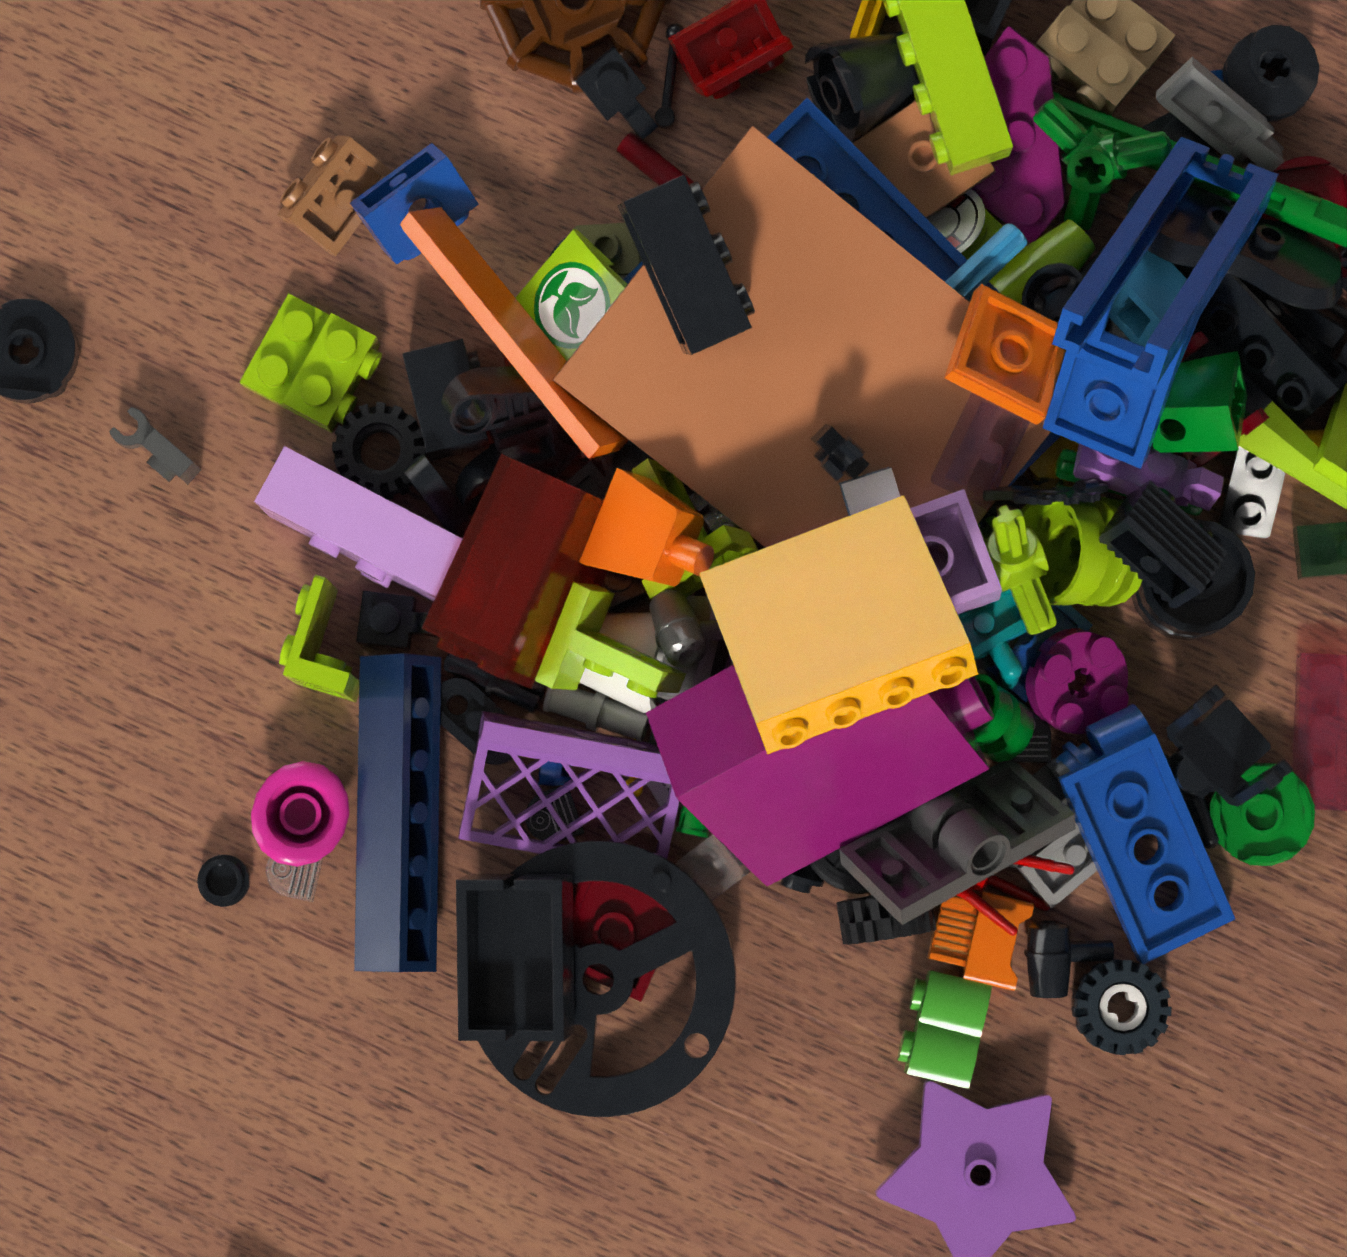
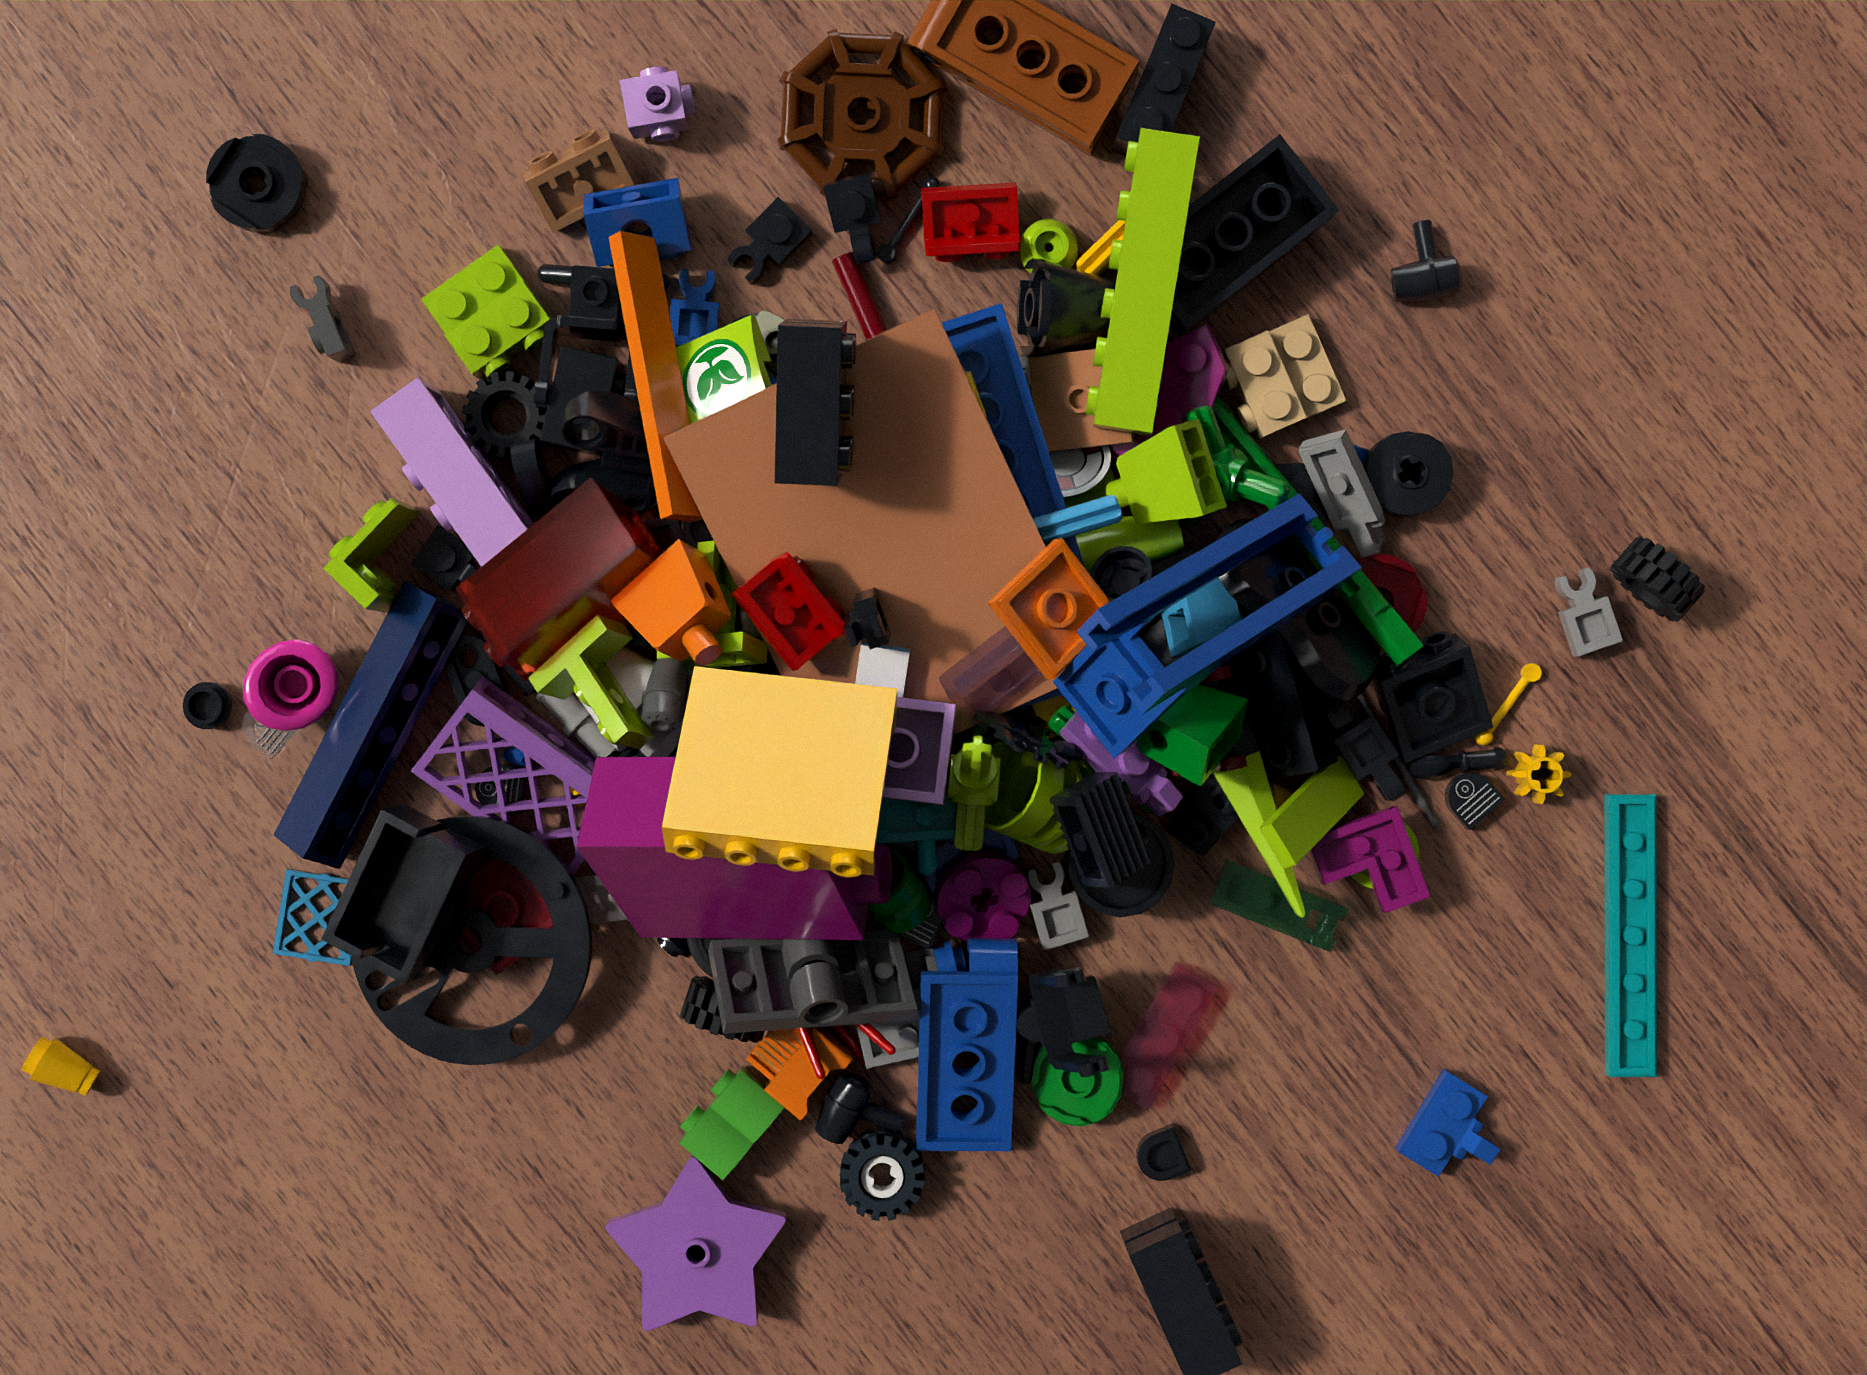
camera: 25 degrees right, 5 degrees up
(377, 84) = (642, 101): none -> lavender brick
(416, 314) = (592, 316): none -> black piece
(447, 1075) = (313, 953): none -> dark azure window
(510, 263) = (694, 315): none -> blue plate
(548, 155) = (774, 236): none -> black plate
(758, 481) = (790, 609): none -> red bracket
(813, 19) = (1053, 233): none -> lime plate
(1048, 182) = (1169, 476): none -> lime torso
(1158, 664) = (1057, 913): none -> light grey plate

